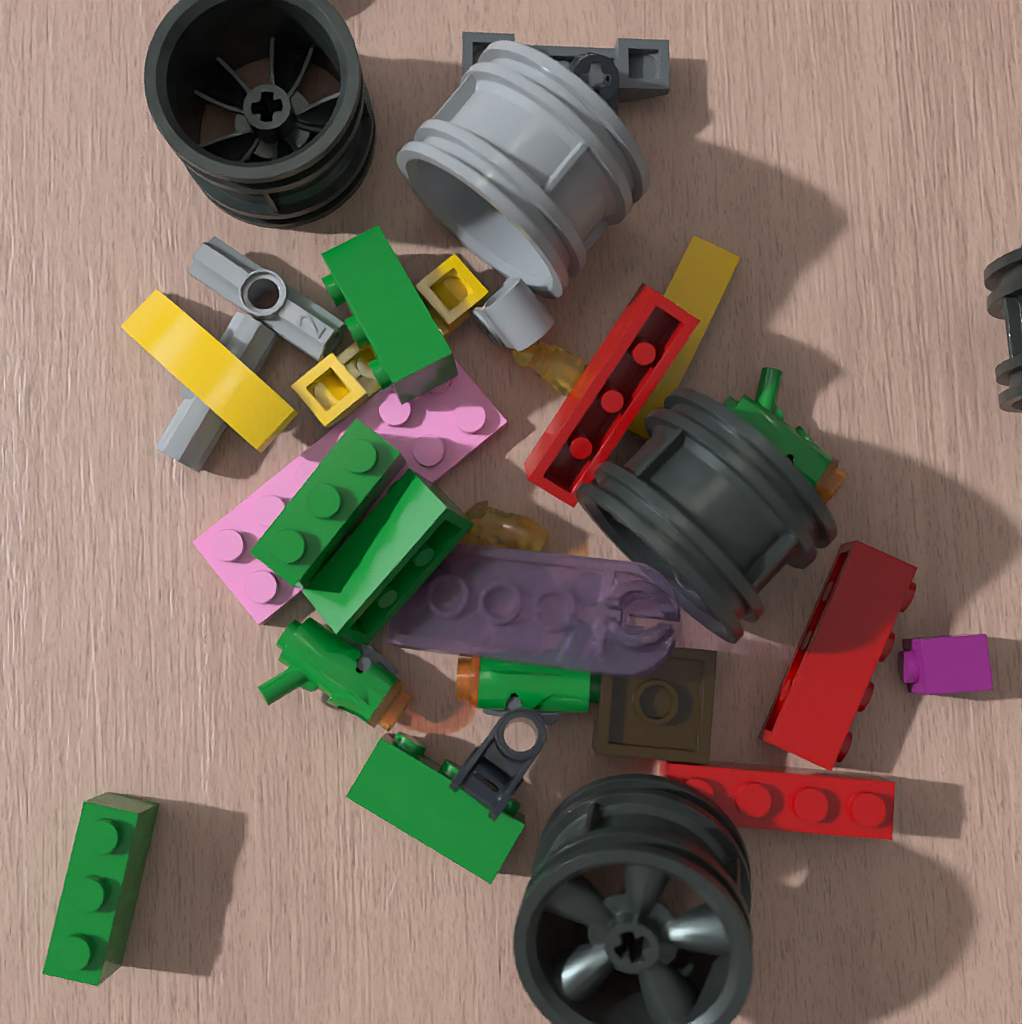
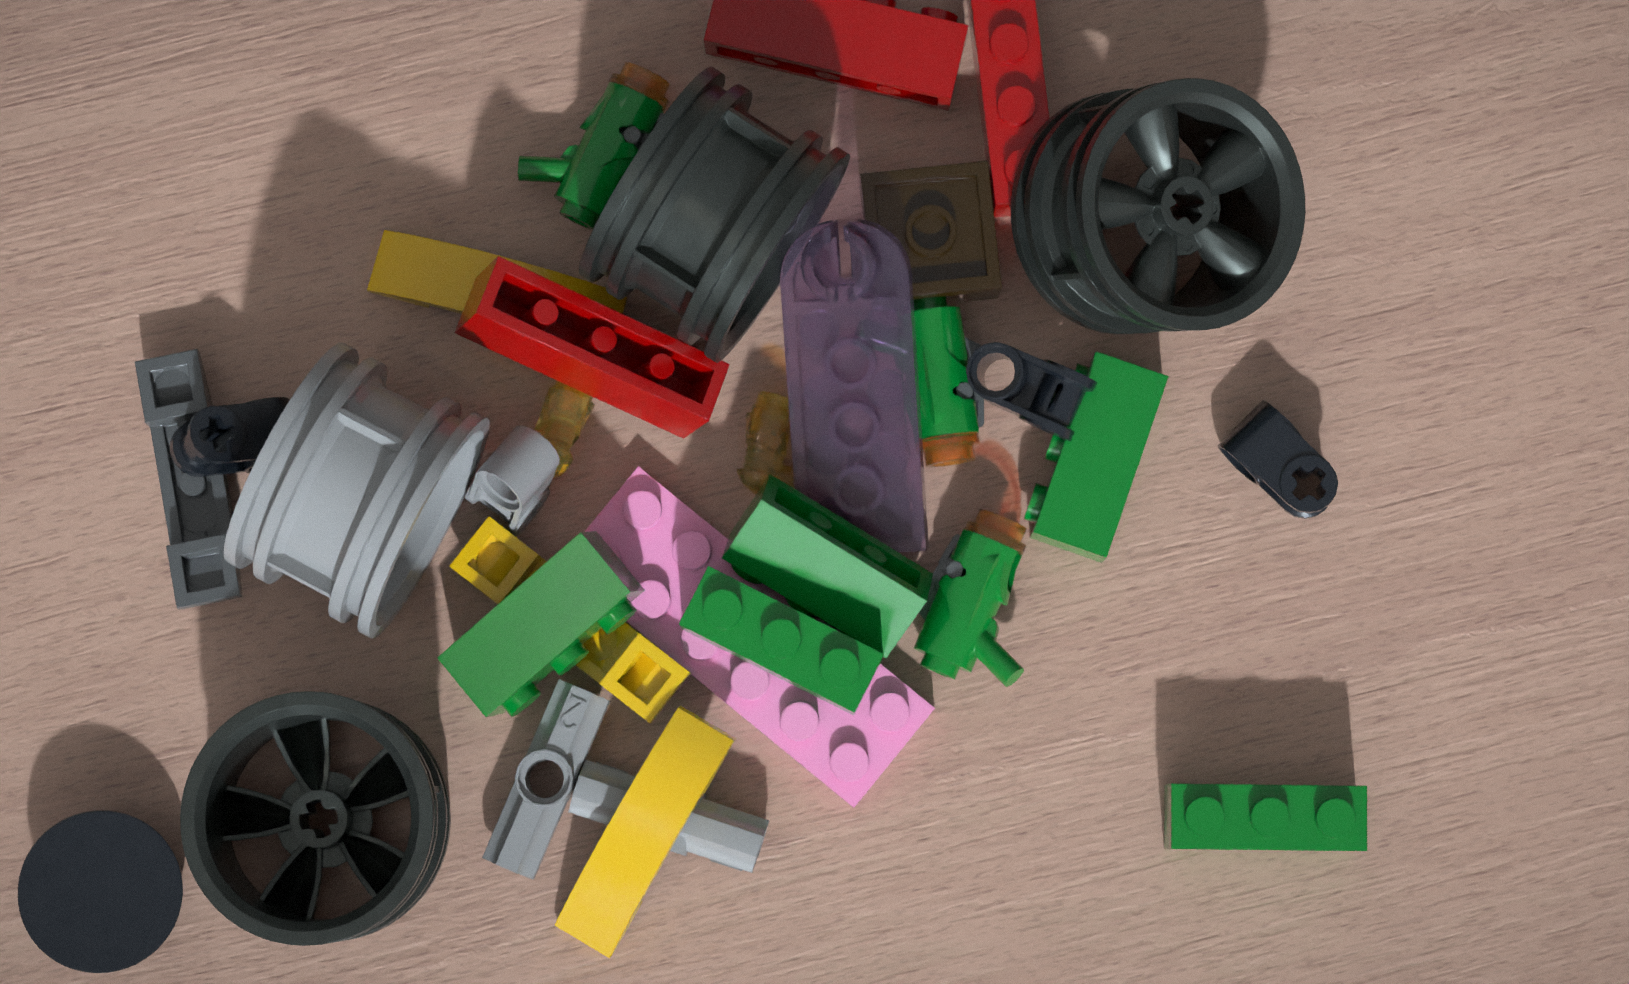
camera: 100 degrees left, 0 degrees up
(407, 959) = (1271, 452): none -> black piece

